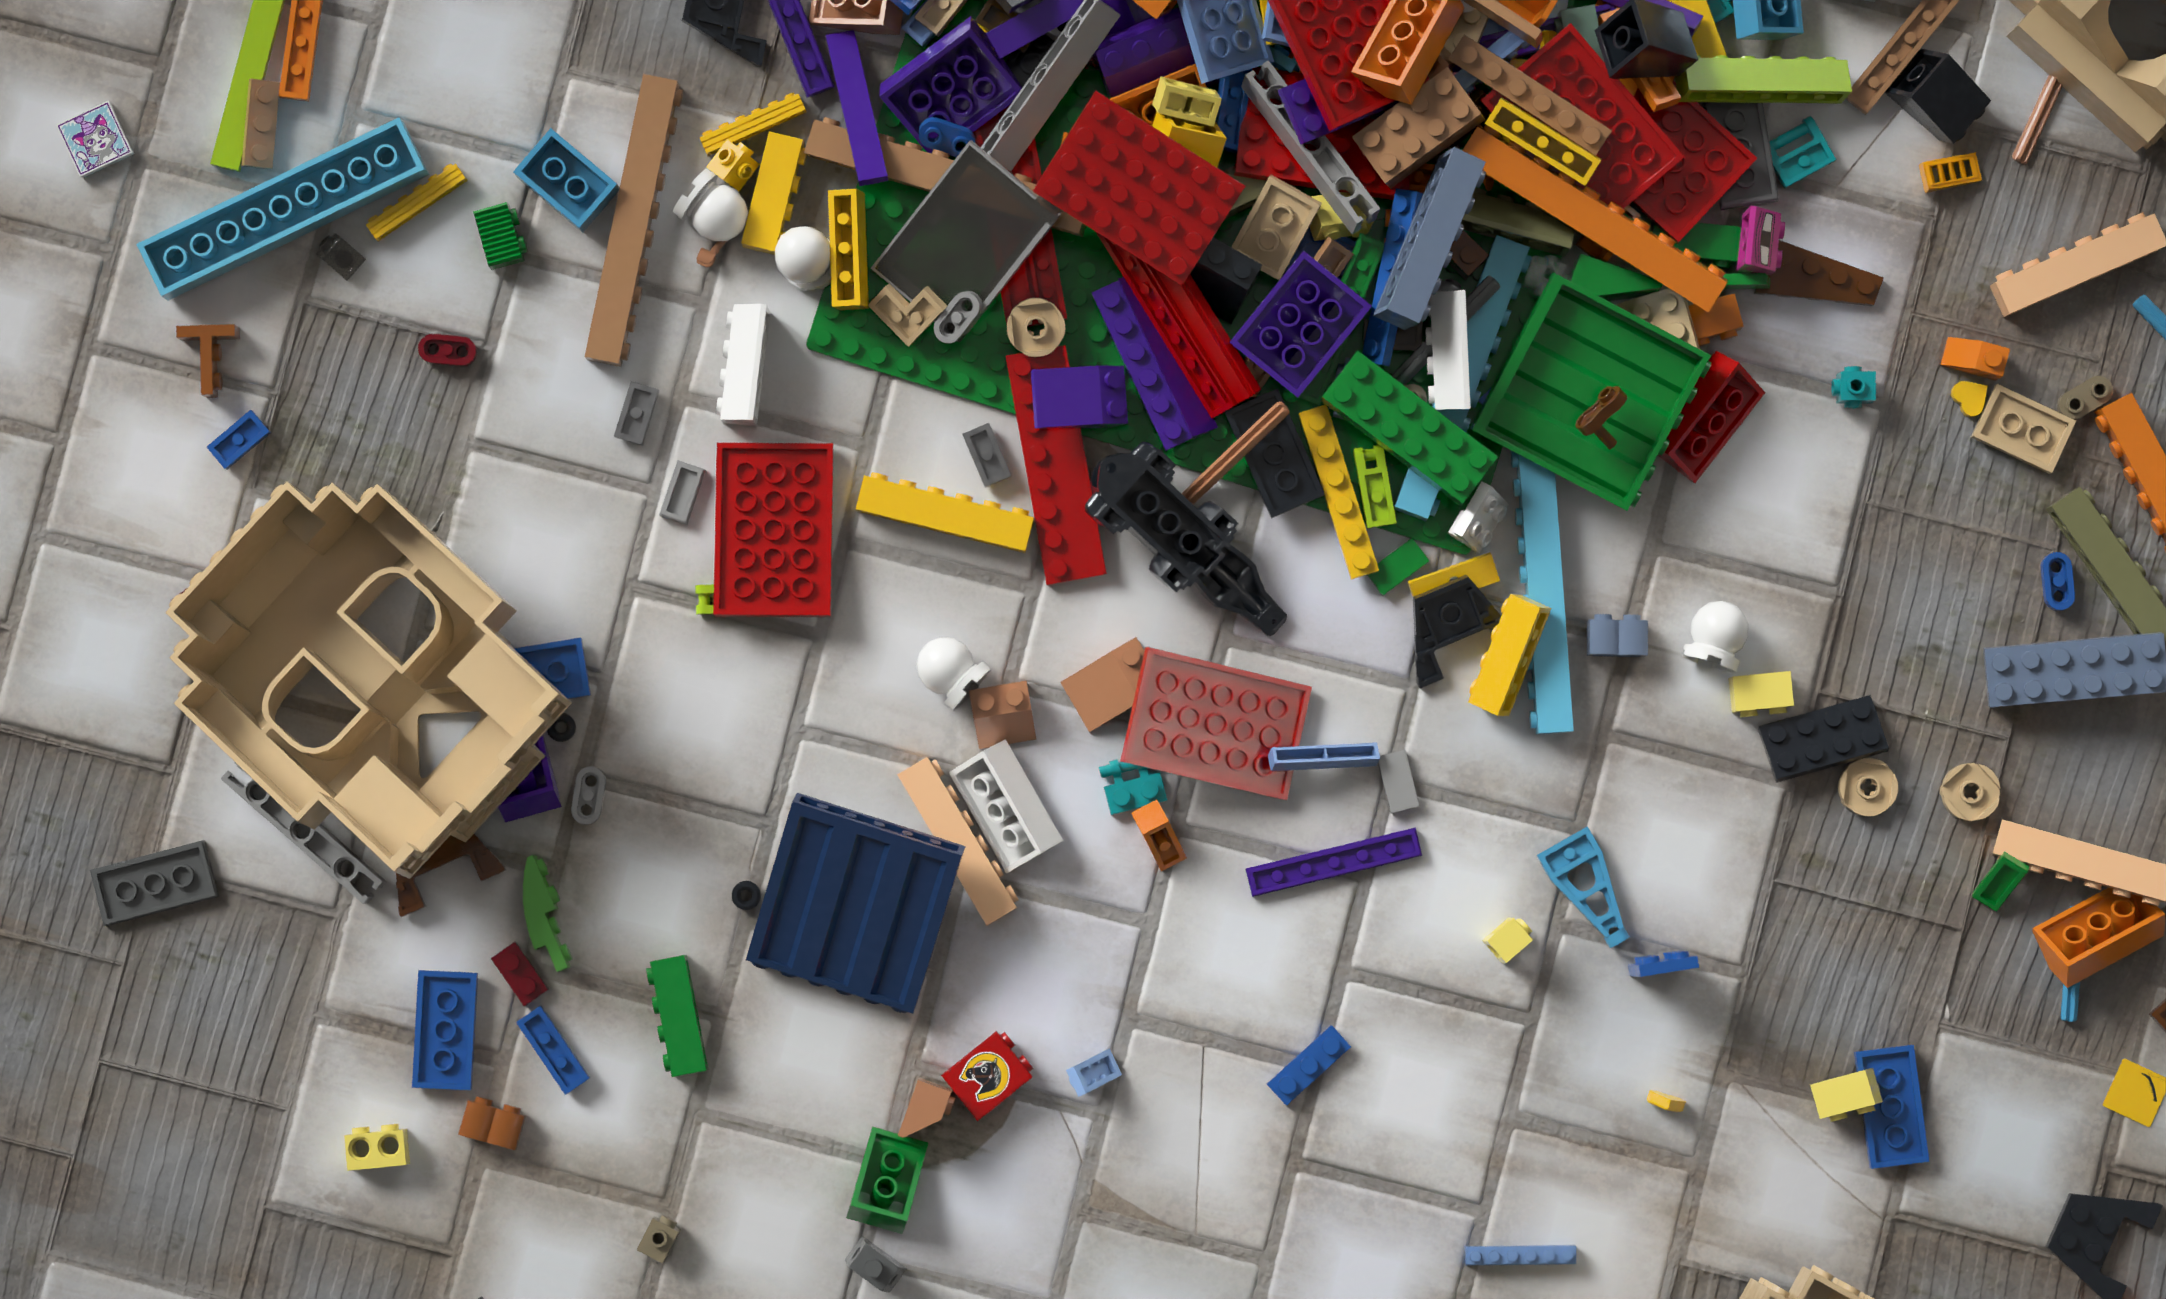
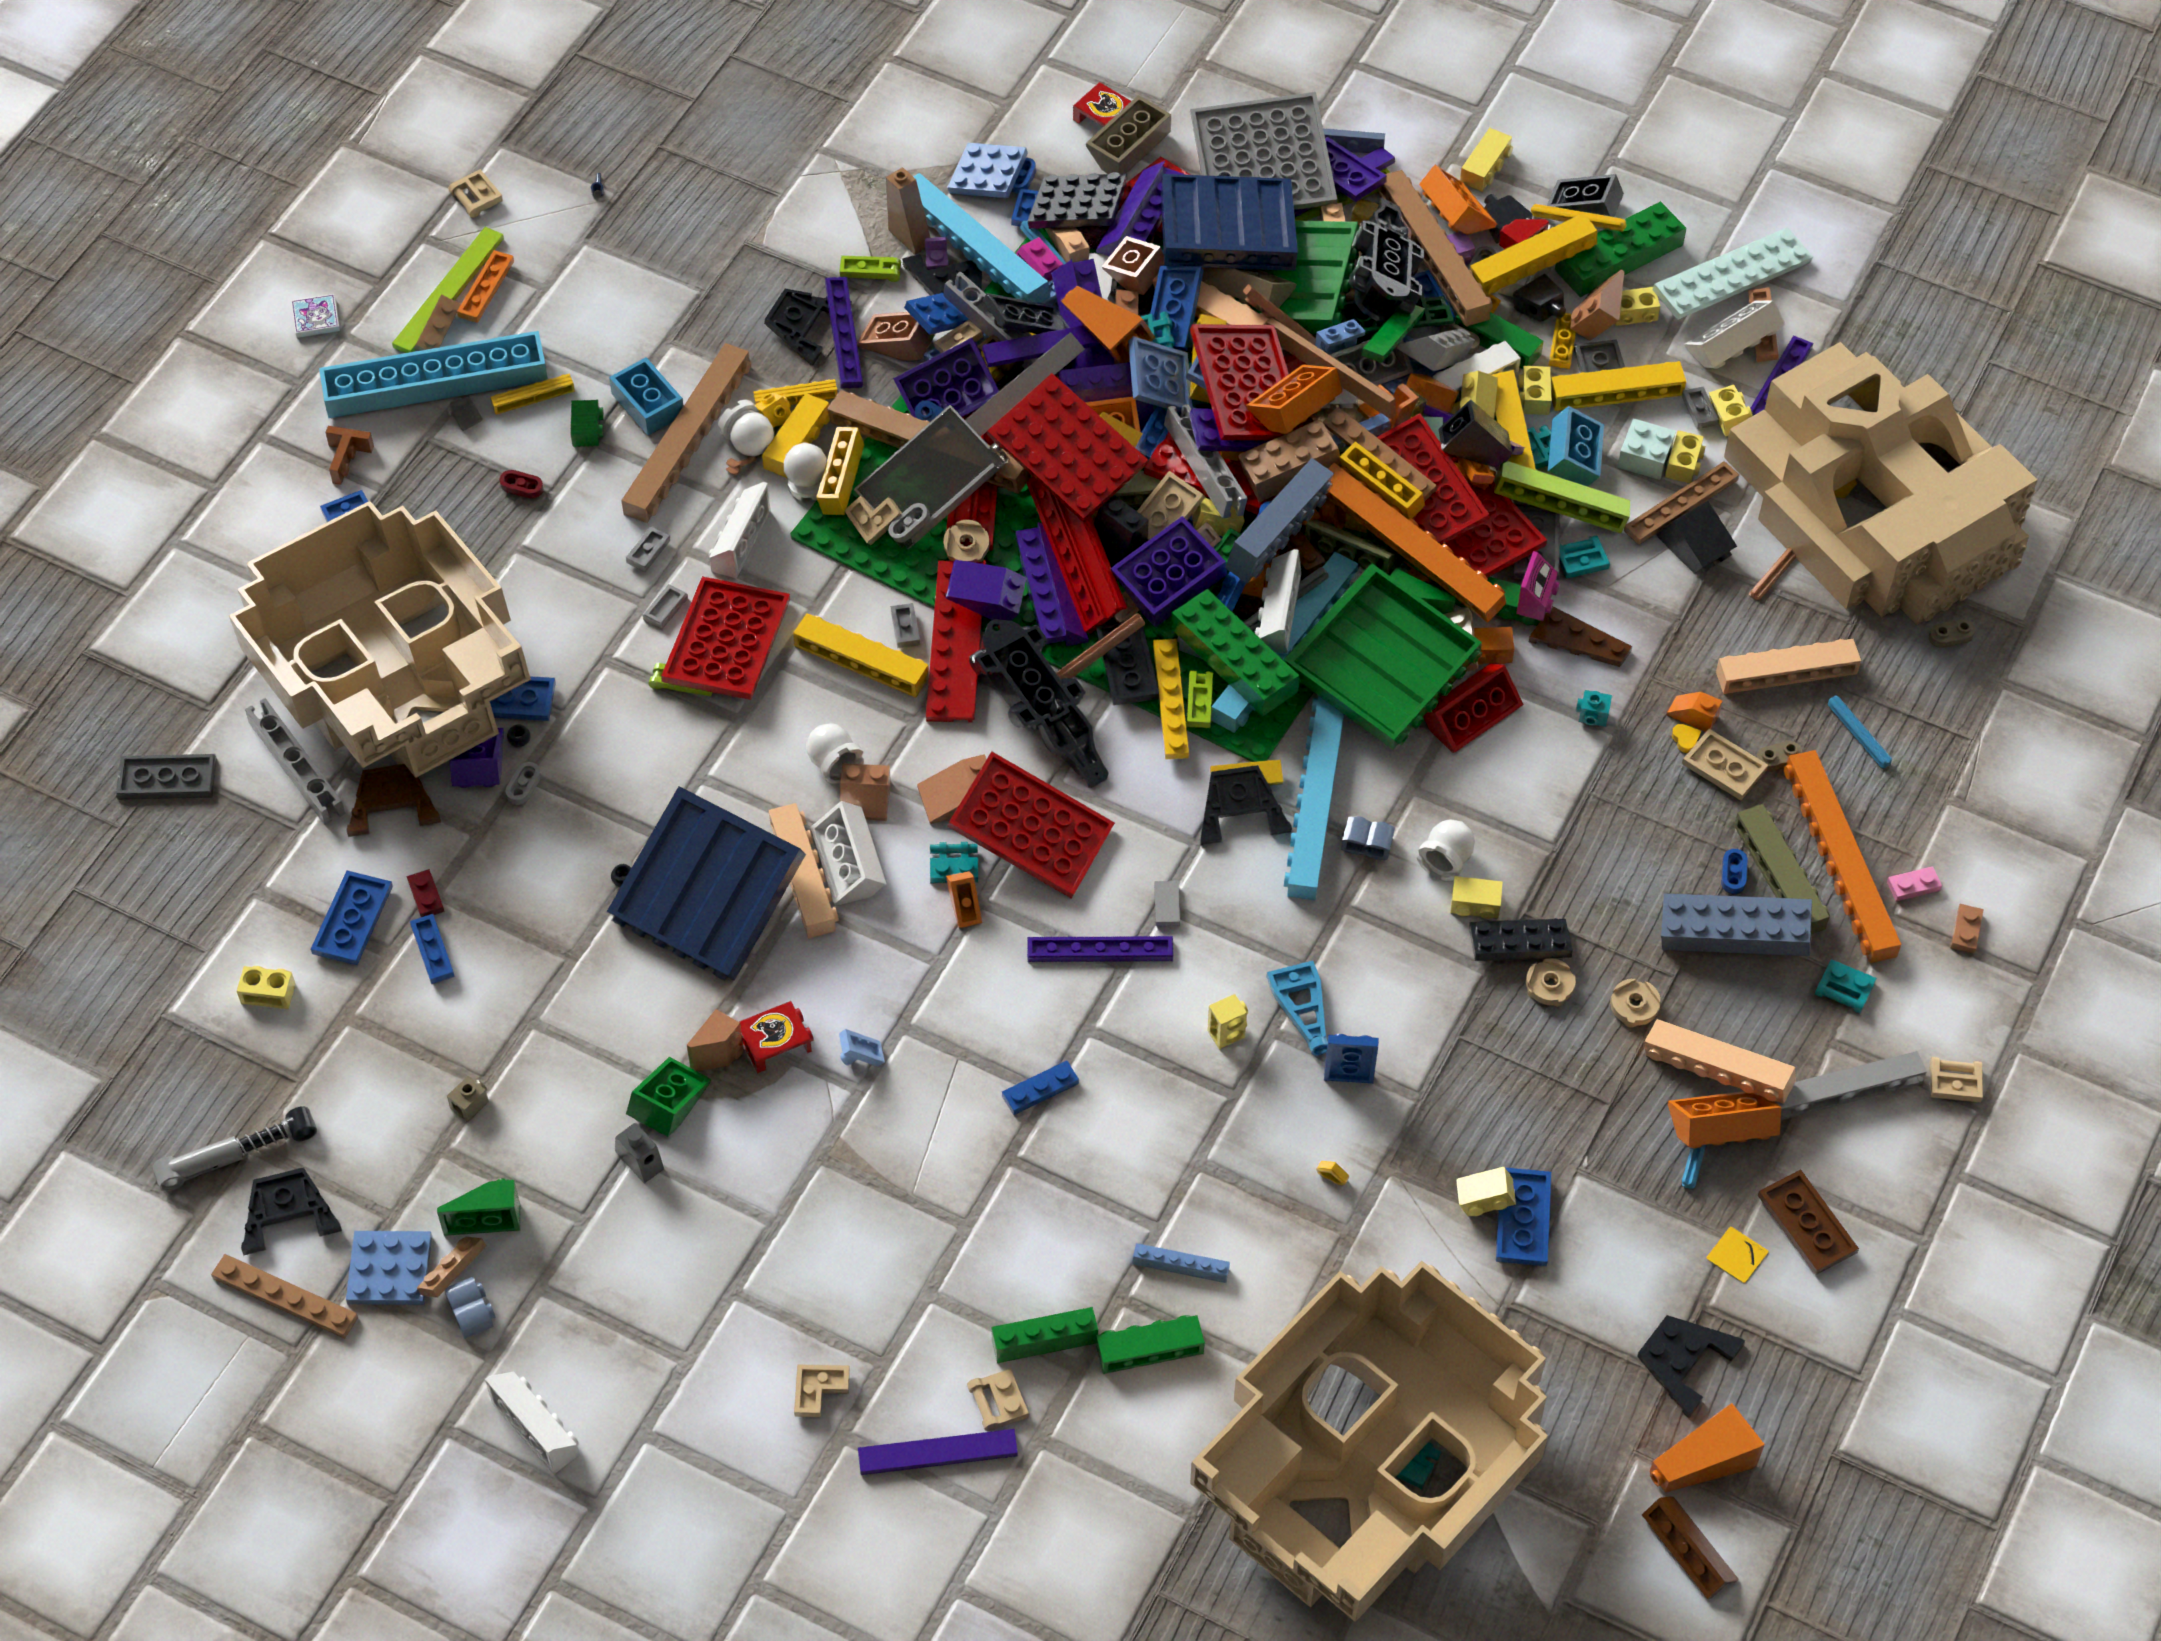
camera: 15 degrees right, 30 degrees down
(492, 1124) = (364, 989): dark orange brick -> none
(538, 902) = (457, 852): bright green slope -> none
(678, 1016) = (540, 944): green brick -> none
(856, 108) = (874, 388): dark purple tile -> none
(1186, 101) = (1120, 409): light yellow brick -> none
(1323, 756) = (1111, 867): medium blue piece -> none
(1398, 566) = (1201, 760): green tile -> none
(1480, 518) = (1276, 731): white plate -> none
(1509, 654) = (1277, 824): yellow brick -> none
(1592, 420) = (1378, 666): reddish brown piece -> none
(1747, 281) = (1520, 622): green tile -> none
(1928, 178) = (1689, 597): light orange slope -> none
(2000, 881) = (1647, 1066): green tile -> none

